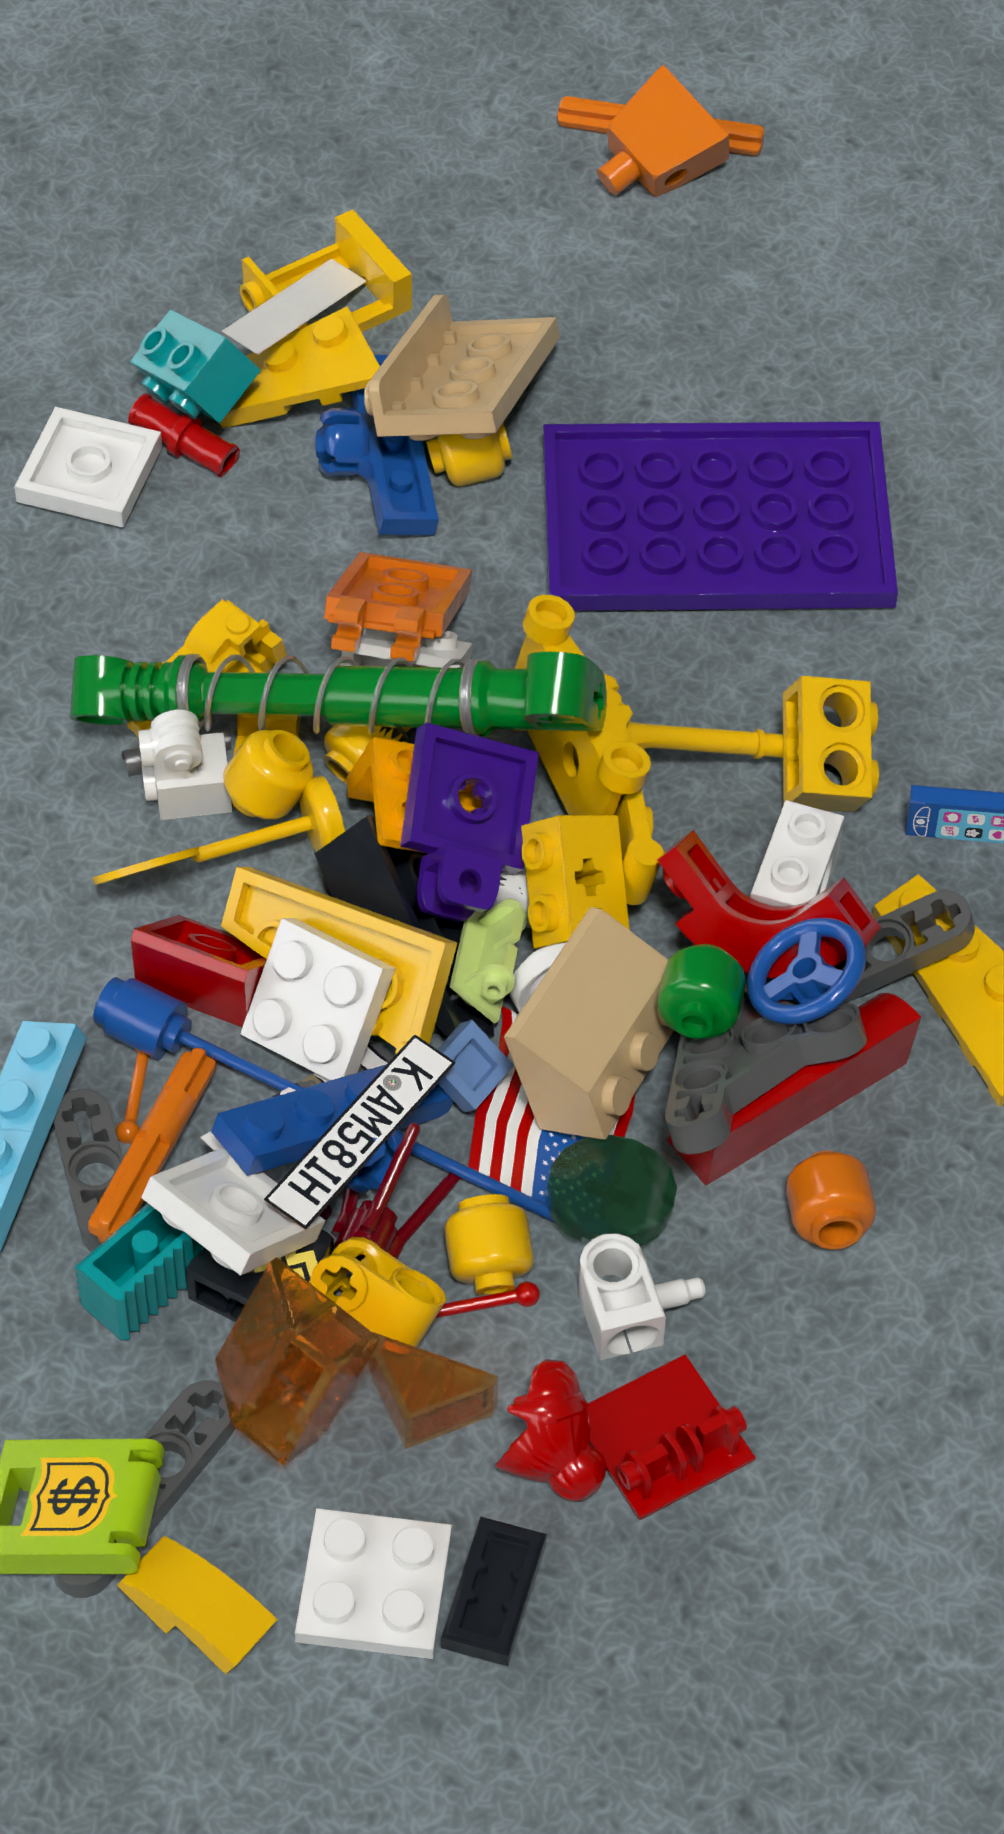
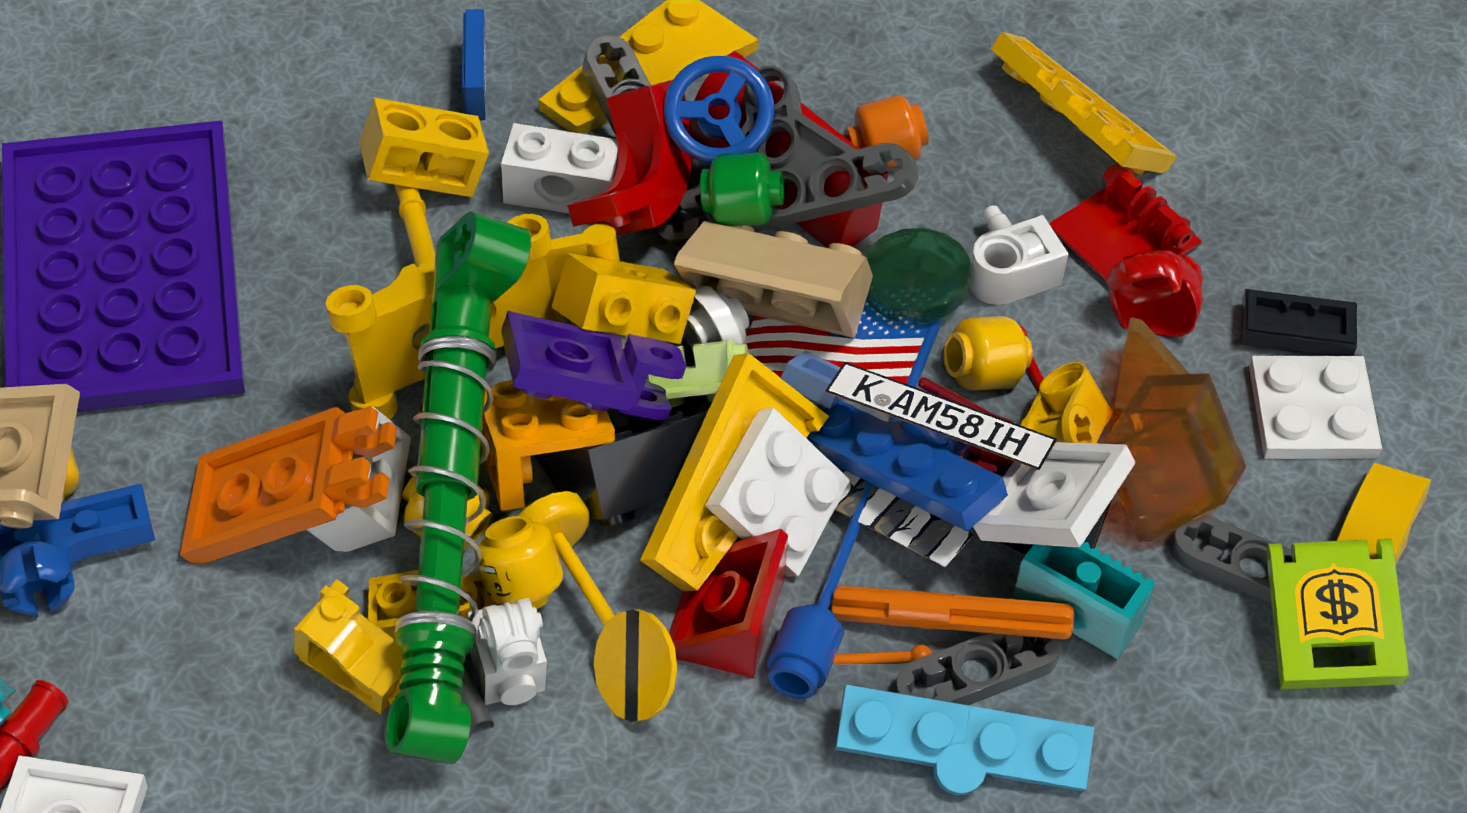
camera: 100 degrees left, 0 degrees up
(841, 1417) = (1081, 105): none -> yellow wing

